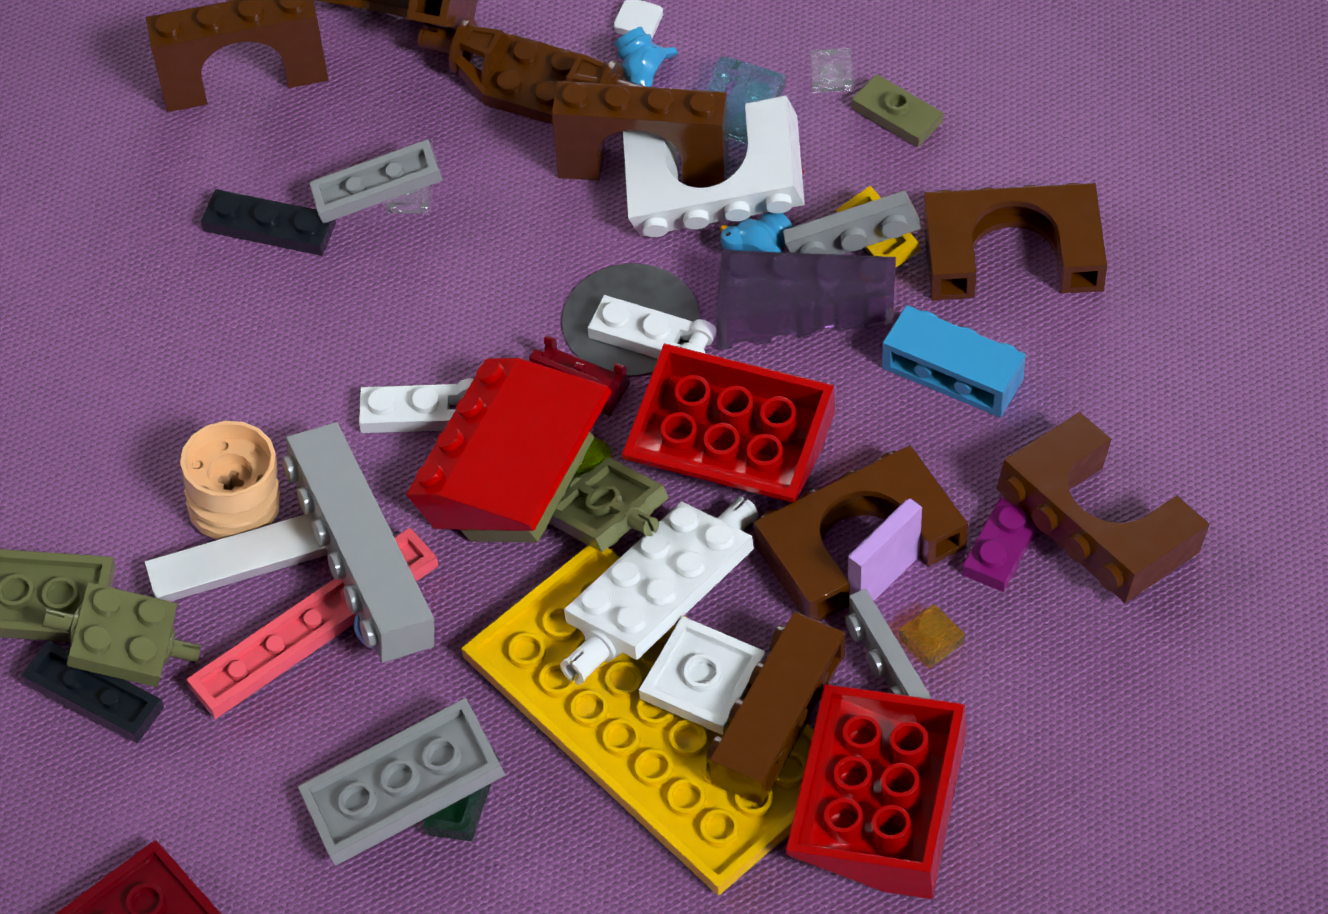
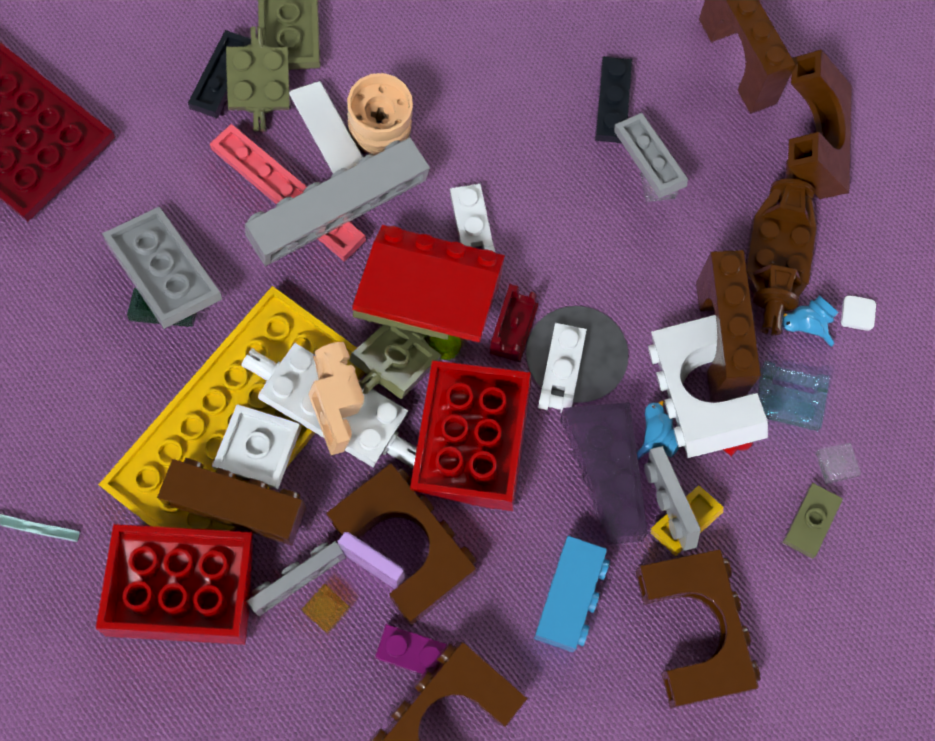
camera: 75 degrees right, 15 degrees up
(662, 553) = (335, 395): none -> light nougat plate

